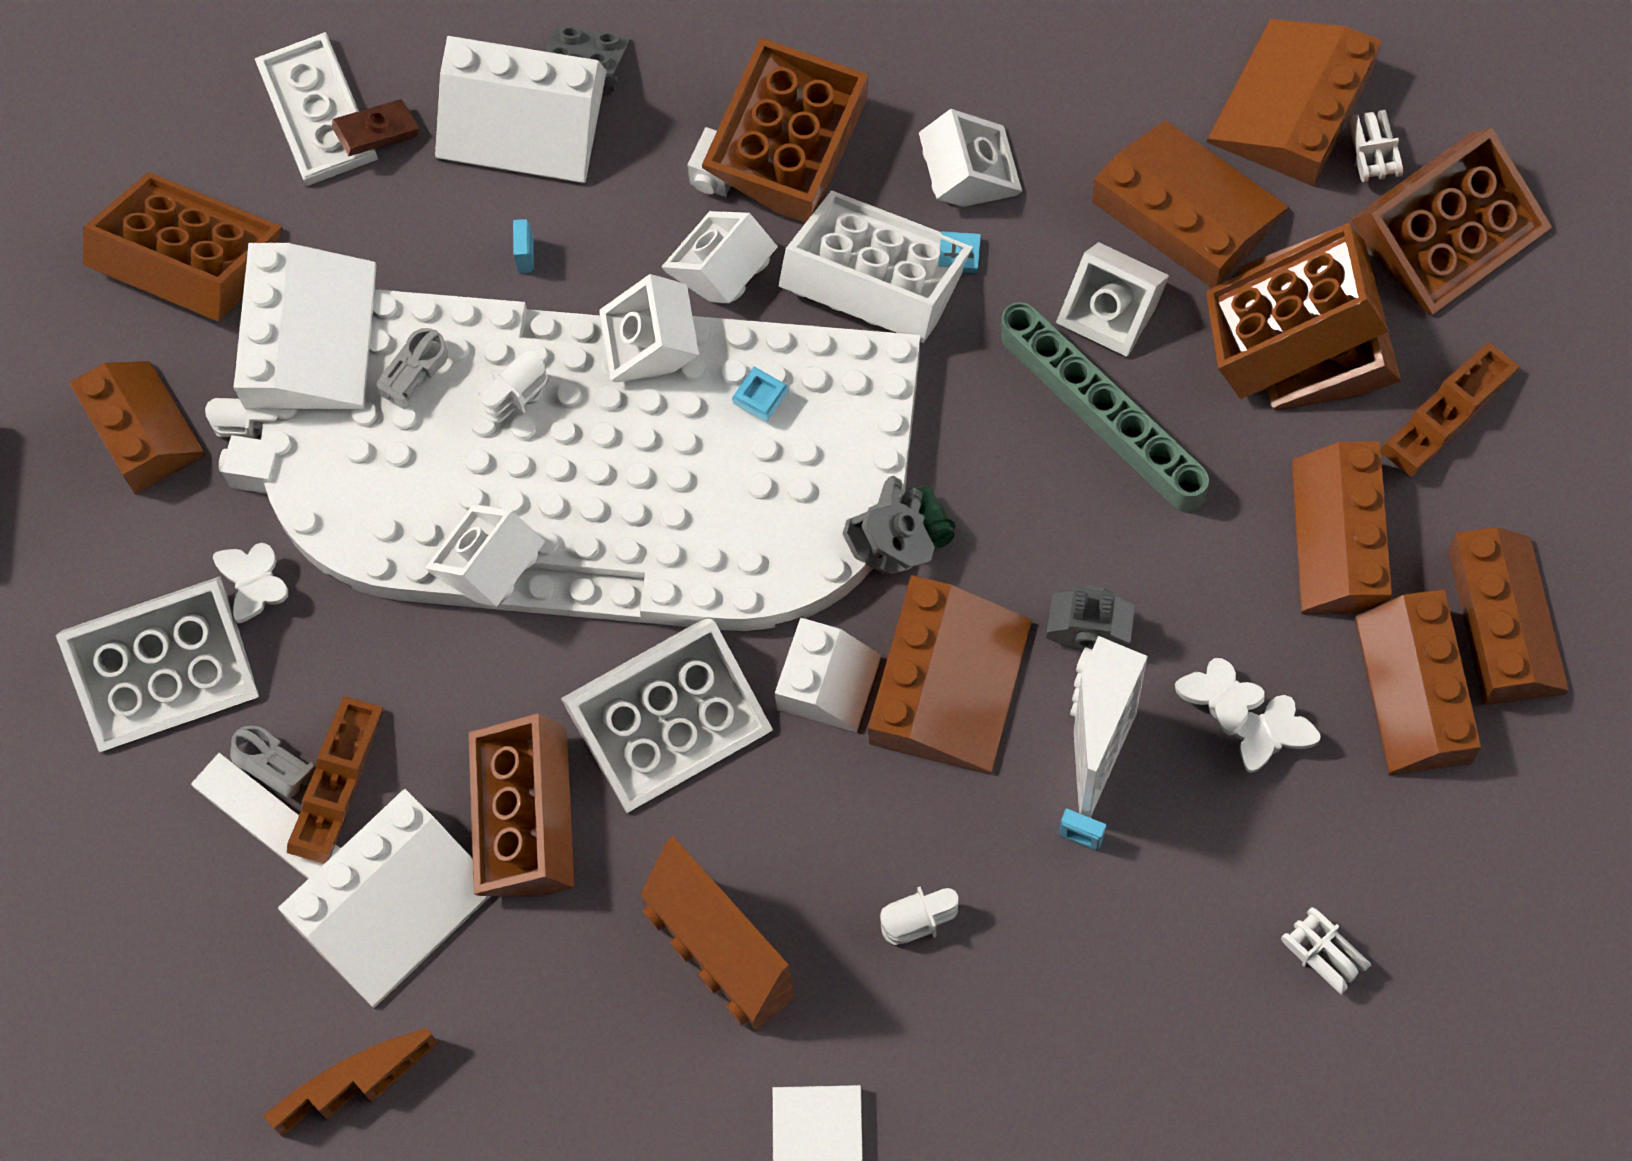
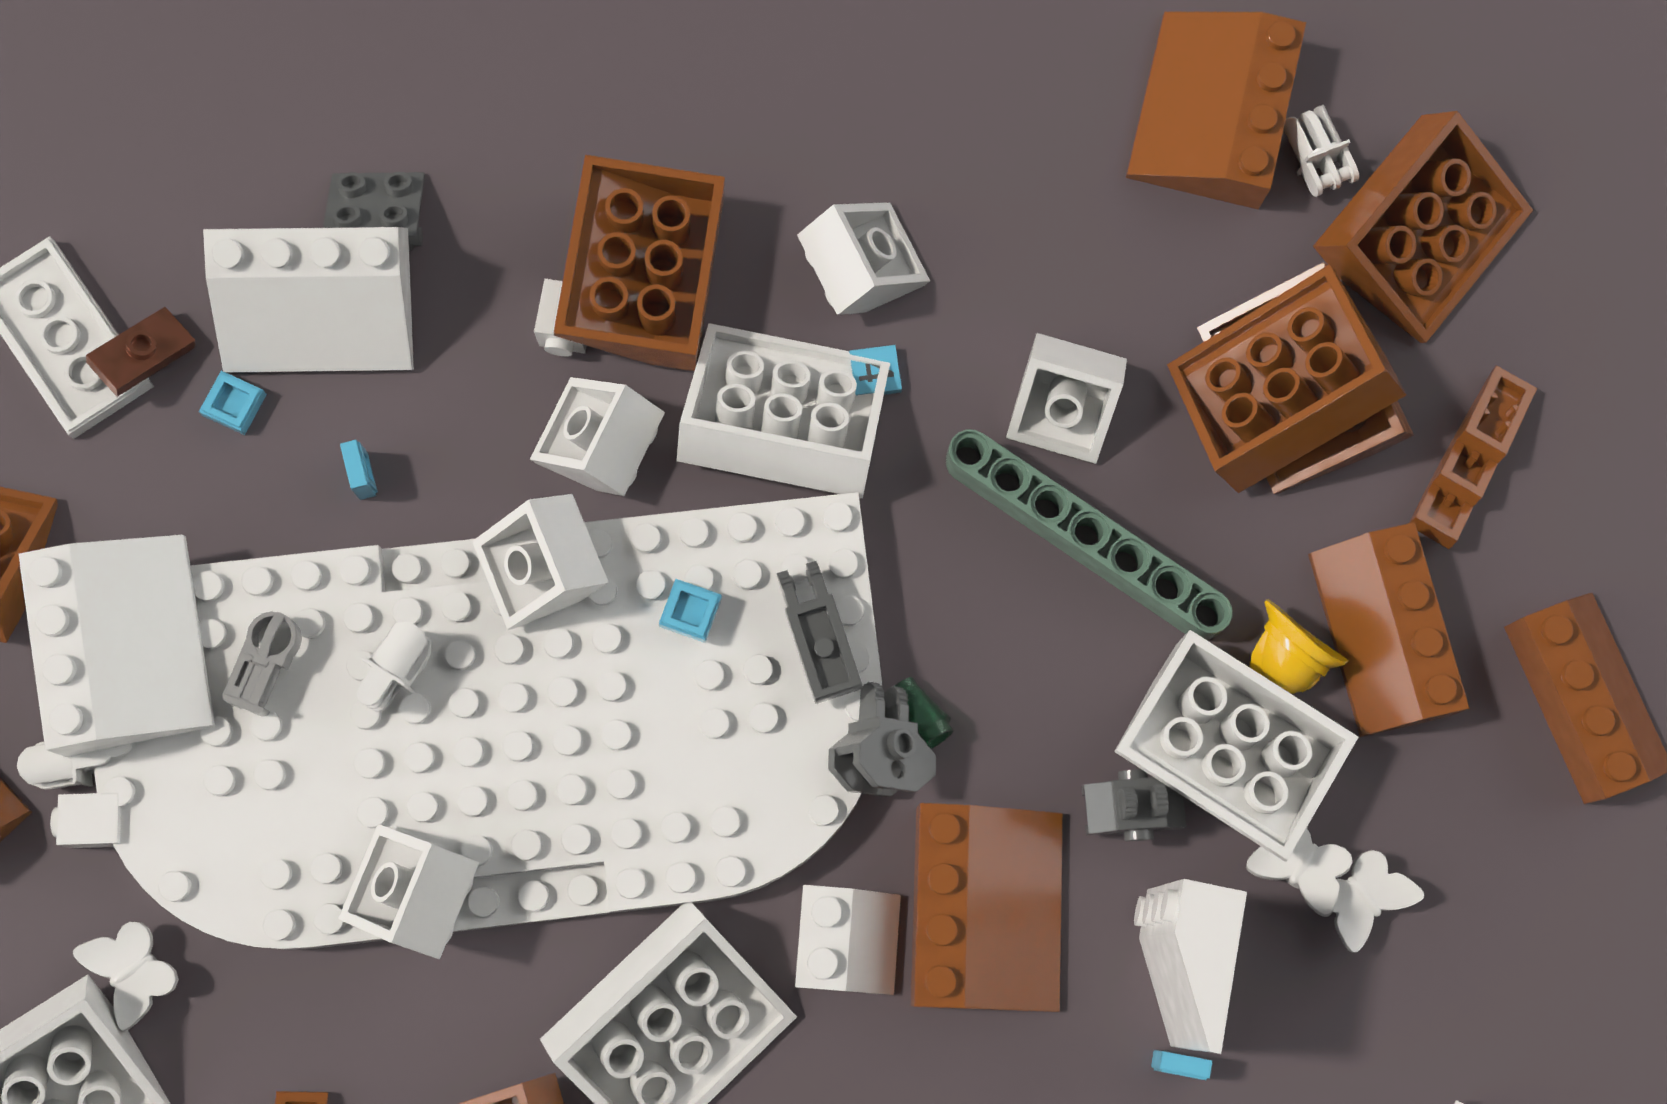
camera: 25 degrees left, 10 degrees up
(436, 181) = (232, 402): none -> medium azure tile
(859, 433) = (820, 638): none -> dark grey hinge
(1186, 202) = (1124, 259): dark orange slope -> none
(1186, 582) = (1236, 744): none -> white slope
(1249, 532) = (1291, 654): none -> yellow piece
(1418, 683) = (1514, 801): dark orange slope -> none

